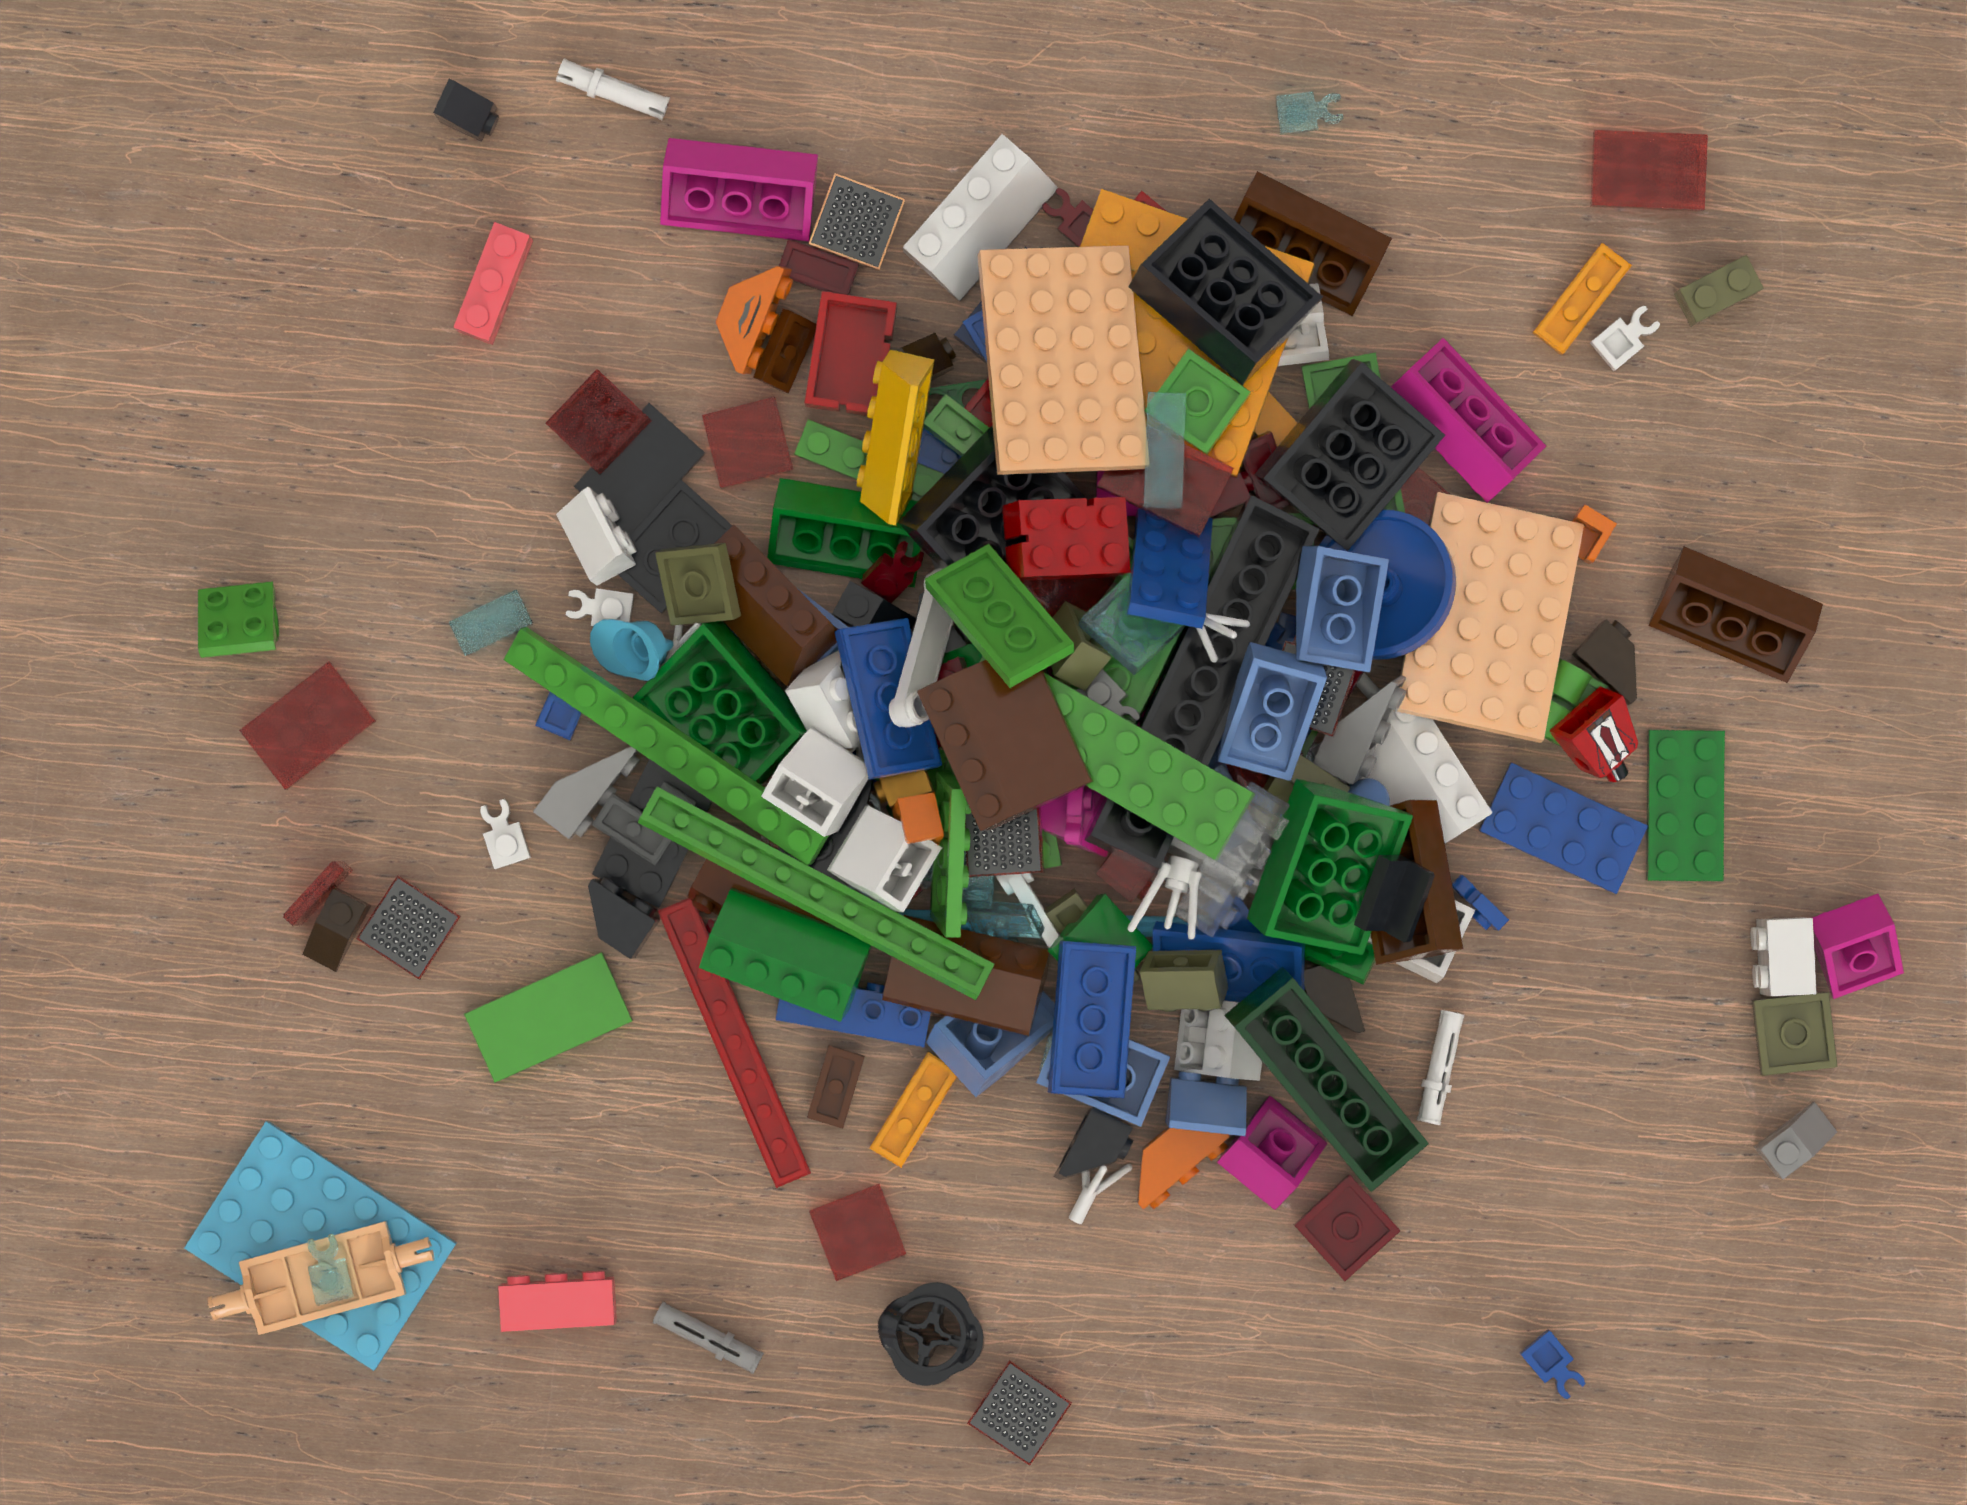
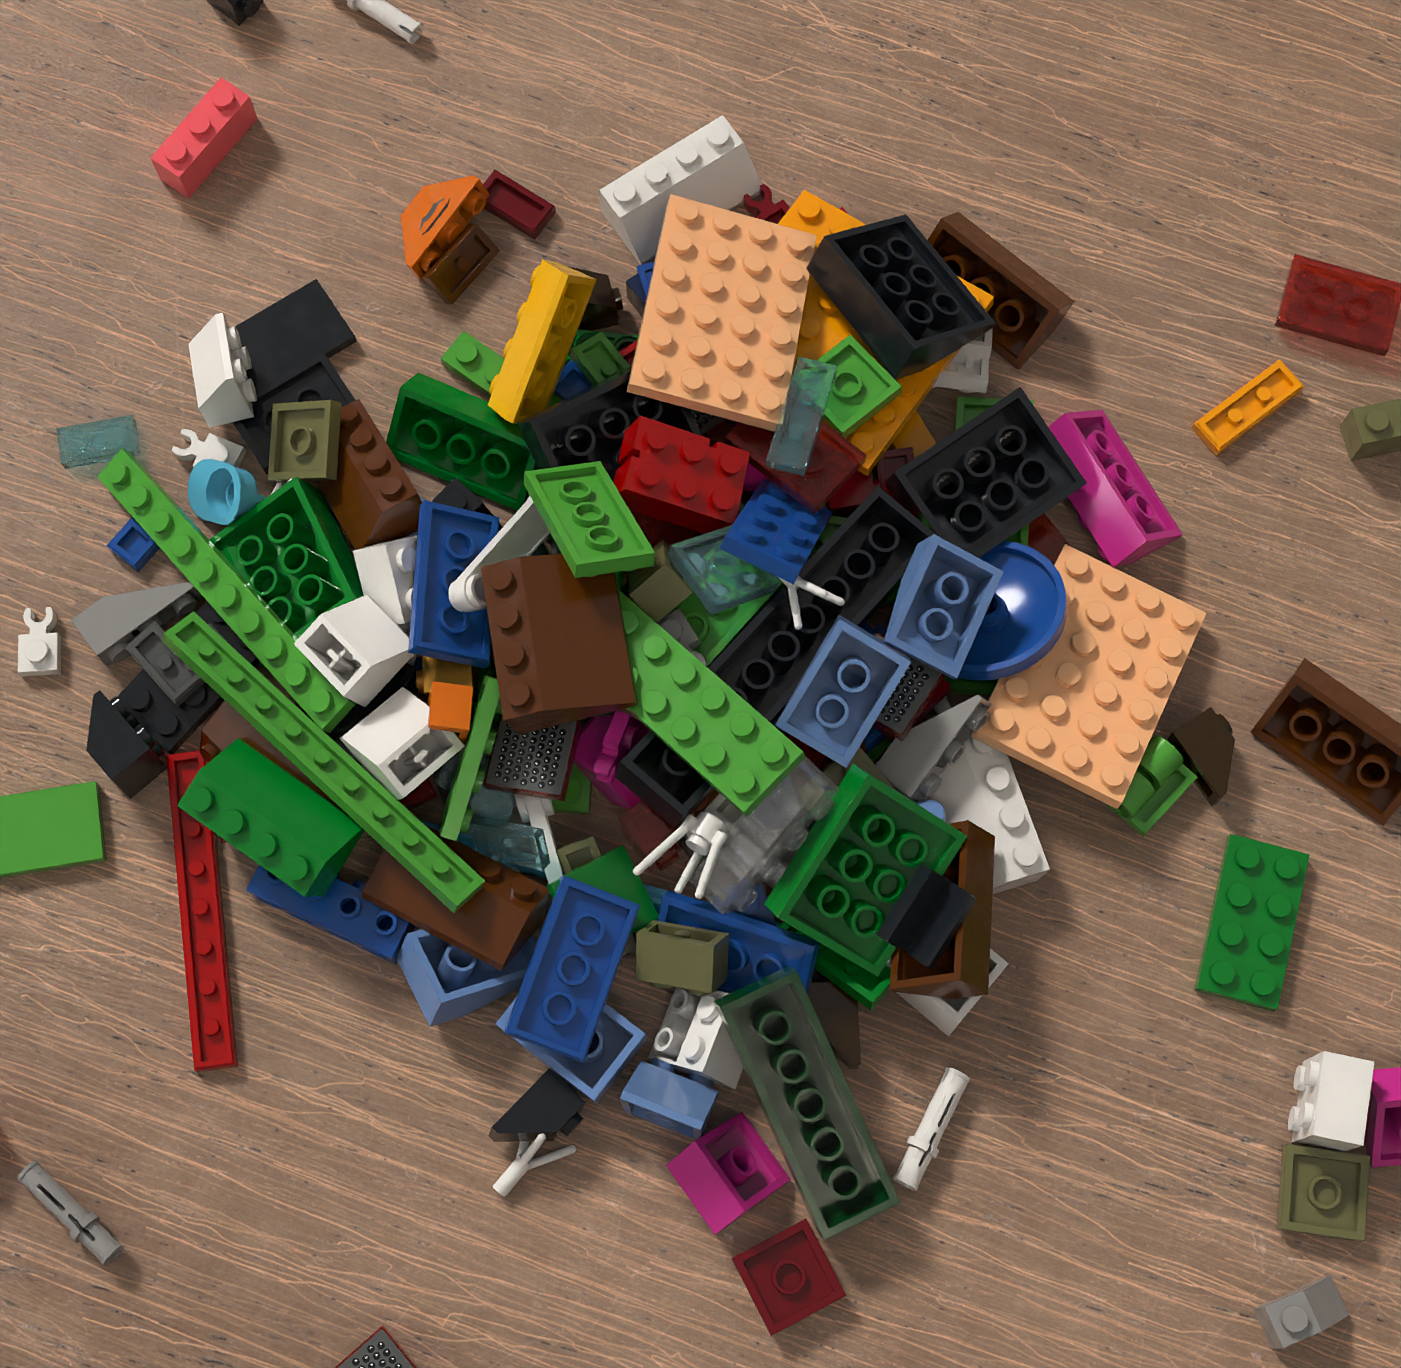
camera: 15 degrees right, 15 degrees down
(598, 421) = (262, 283): clear red tile -> none
(738, 189) = (460, 114): dark pink slope -> none
(747, 442) = (399, 339): clear red tile -> none
(835, 1086) = (289, 980): reddish brown plate -> none
(846, 351) = (507, 267): red piece -> none
(857, 222) = (564, 169): tile -> none
(857, 1232) = (265, 1141): clear red plate -> none
(891, 575) = (500, 486): dark red plate -> none
(893, 1323) = (270, 1250): black piece -> none
(914, 1110) = (363, 1028): light orange tile -> none
(1174, 1158) = (621, 1150): orange slope -> none
(1300, 112) = (1013, 175): clear light blue plate -> none
(1485, 913) = (1017, 974): blue plate -> none
(1563, 828) = (1119, 913): blue plate -> none
(1595, 532) = (1218, 622): orange panel -> none
(1598, 735) = (1178, 821): red torso -> none
(1621, 341) = (1281, 453): white plate -> none

